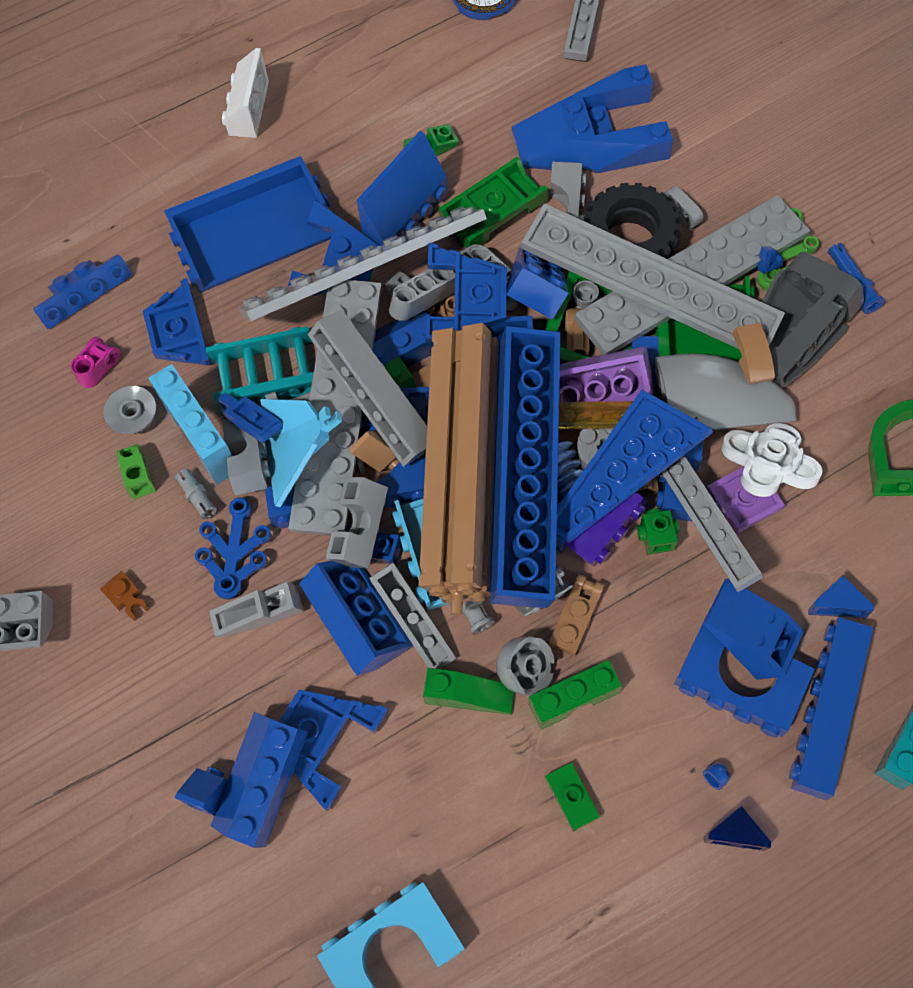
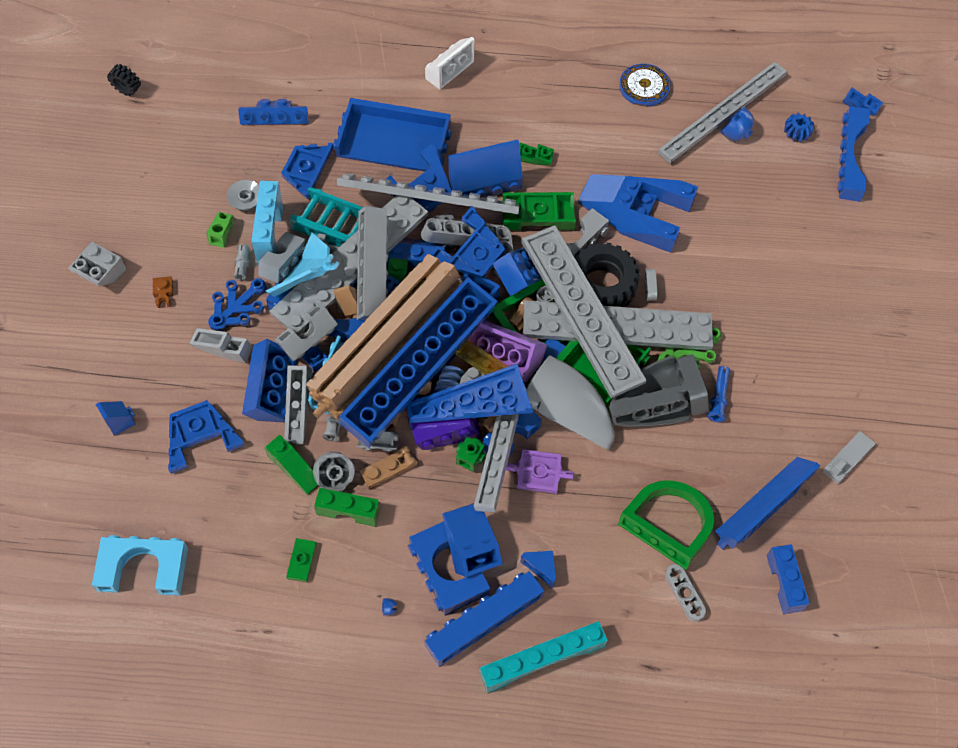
camera: 30 degrees right, 5 degrees down
(96, 360) = (247, 157): dark pink piece -> none
(249, 417) = (298, 238): blue hinge -> none
(259, 781) = (148, 432): blue slope -> none
(739, 831) = (371, 642): clear blue slope -> none
(756, 354) = (604, 389): medium nougat slope -> none
(769, 259) = (672, 347): blue tile -> none
(771, 459) = (570, 459): white plant -> none

